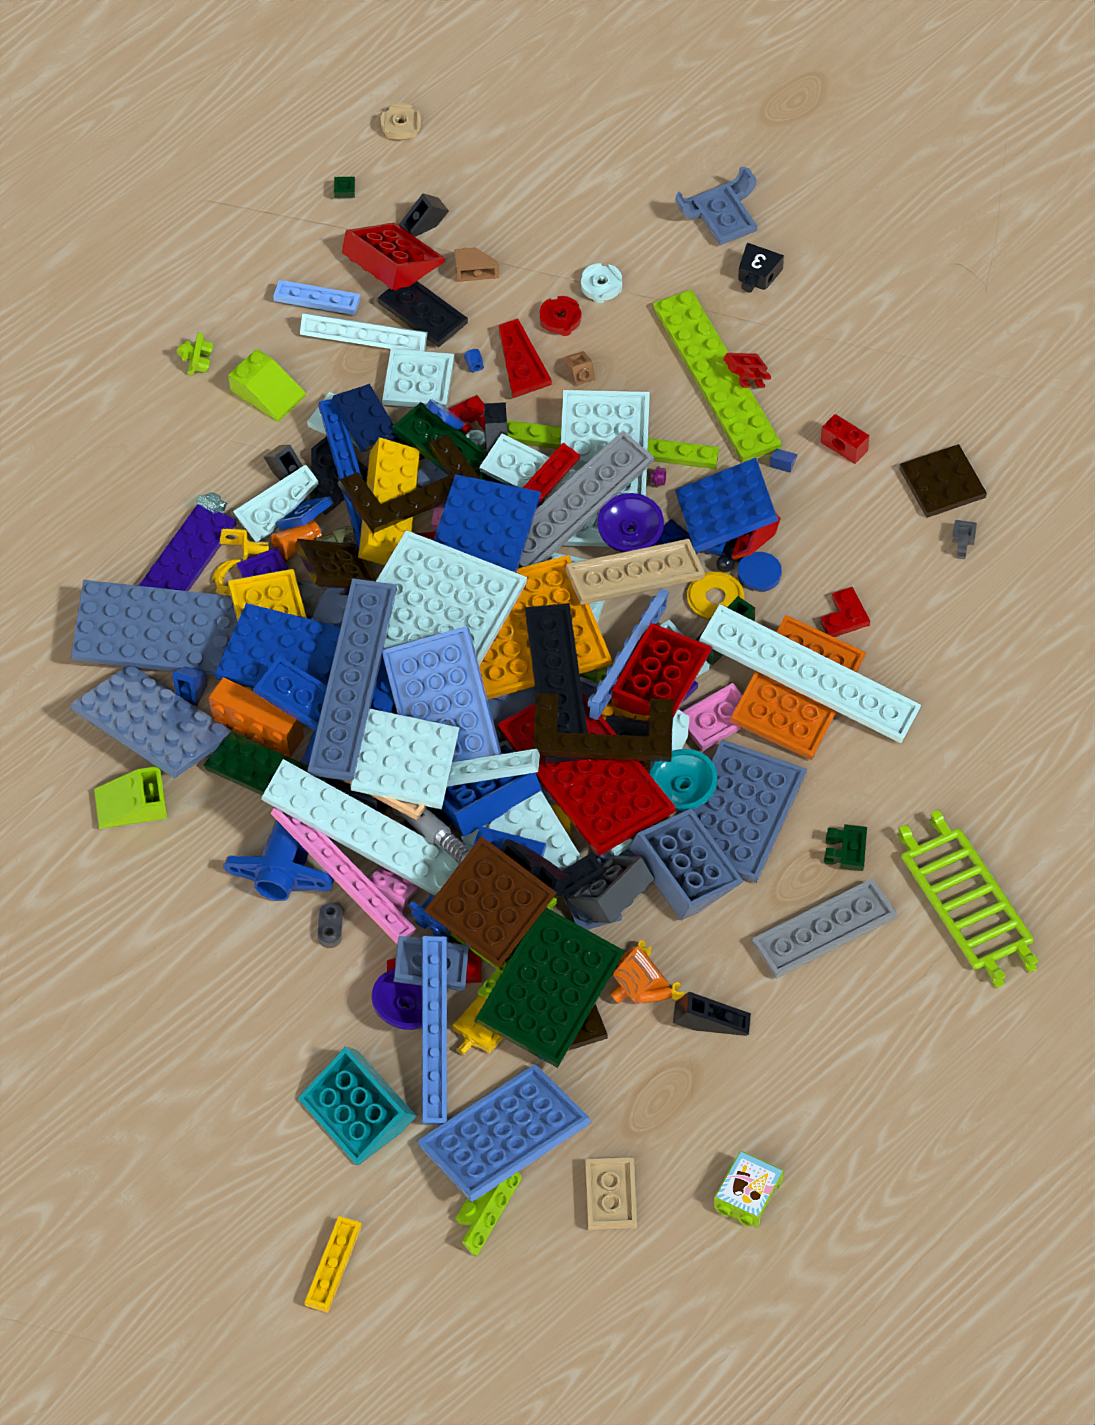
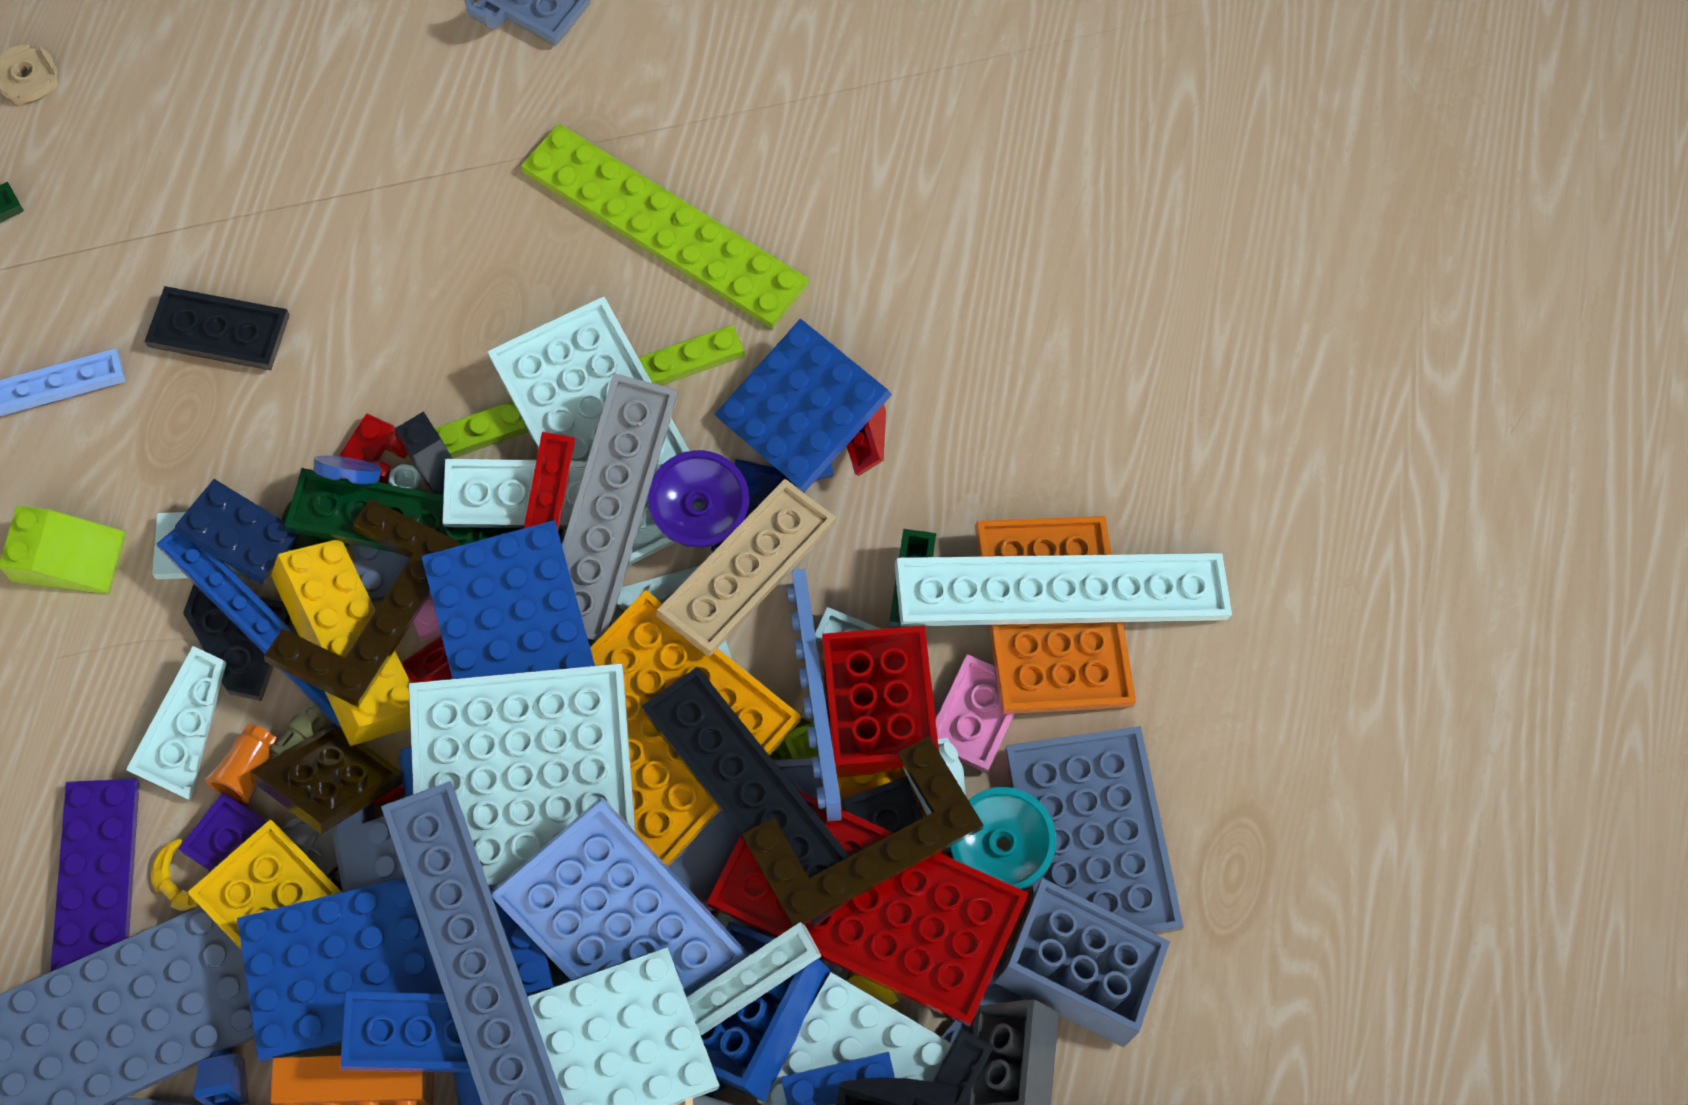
camera: 35 degrees left, 10 degrees up
(212, 502) = (86, 772): clear light blue plate -> none
(247, 547) = (178, 813): yellow bracket -> none
(283, 461) = (155, 655): black slope -> none
(304, 513) = (234, 720): blue plate -> none
(362, 333) = (154, 403): light aqua plate -> none
(390, 254) = (126, 270): red slope -> none
(417, 378) = (271, 431): light aqua plate -> none
(424, 215) = (137, 192): black slope -> none
(474, 360) = (332, 365): blue hose -> none
(475, 265) = (250, 228): medium nougat slope -> none
(522, 362) = (398, 334): red wing -> none
(560, 325) = (412, 259): red plate -> none
(581, 367) = (481, 302): medium nougat bracket -> none
(601, 292) = (437, 186): light aqua plate -> none
(658, 476) = (682, 407): magenta plate -> none
(697, 593) = (868, 561): yellow piece -> none
(726, 562) = (845, 483): black plate -> none
(747, 367) = (702, 195): red plate -> none
(759, 267) = (626, 52): black torso -> none
(759, 571) = (898, 476): blue tile -> none
(783, 460) = (824, 300): blue slope -> none
(824, 928) = (1311, 949): light grey plate -> none
(845, 438) = (885, 231): red brick -> none
(849, 616) = (1047, 474): red plate -> none
(853, 847) = (1269, 805): dark green plate -> none
(942, 481) = (1037, 226): dark brown plate -> none
(964, 534) = (1115, 286): flat silver plate -> none
(987, 961) = (1539, 873): lime bar -> none

